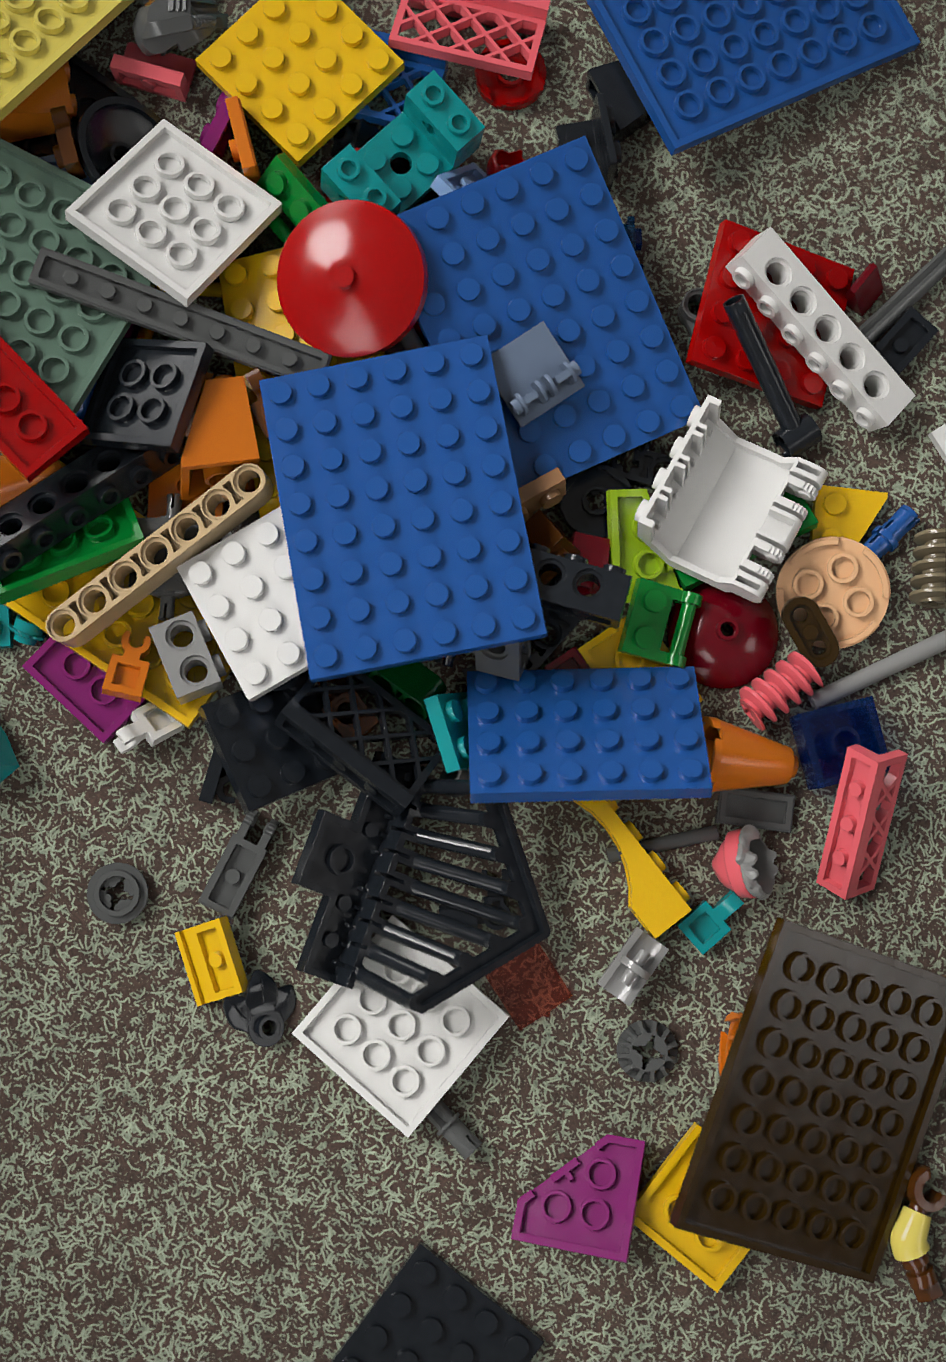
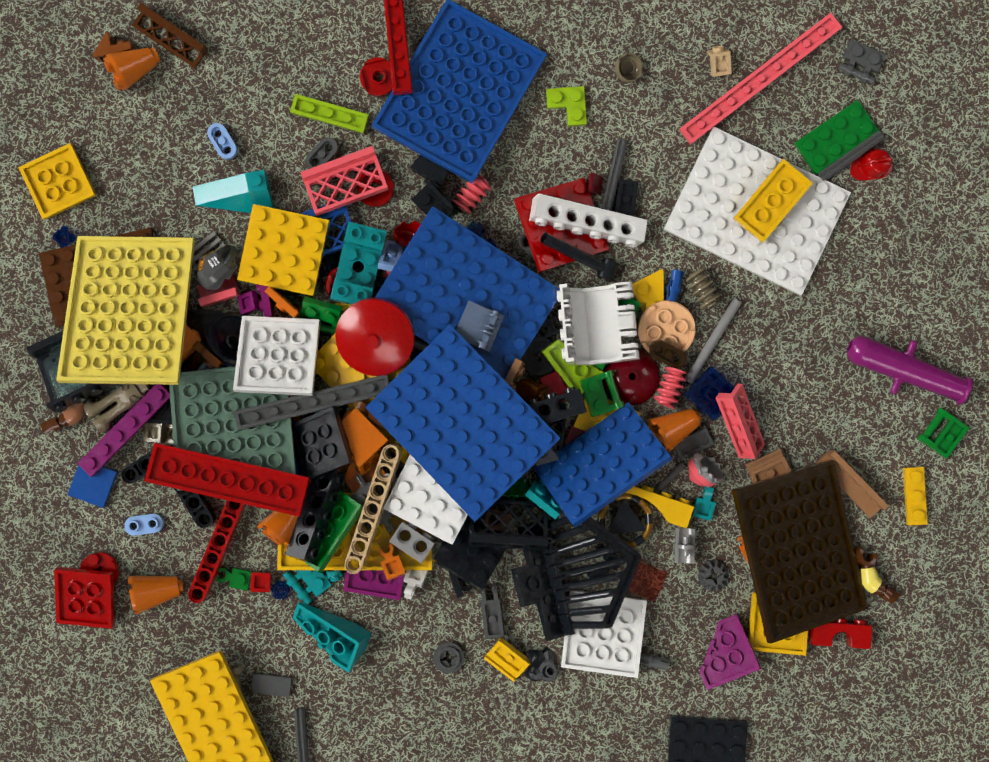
camera: 25 degrees left, 5 degrees up
(191, 114) = (248, 302): none -> magenta plate
(563, 856) = (626, 520): none -> piece
(657, 176) = (472, 194): none -> coral piece
(829, 1312) = (857, 632): none -> red arch
(858, 925) = (767, 466): none -> medium nougat plate
(912, 139) = (573, 100): none -> lime plate

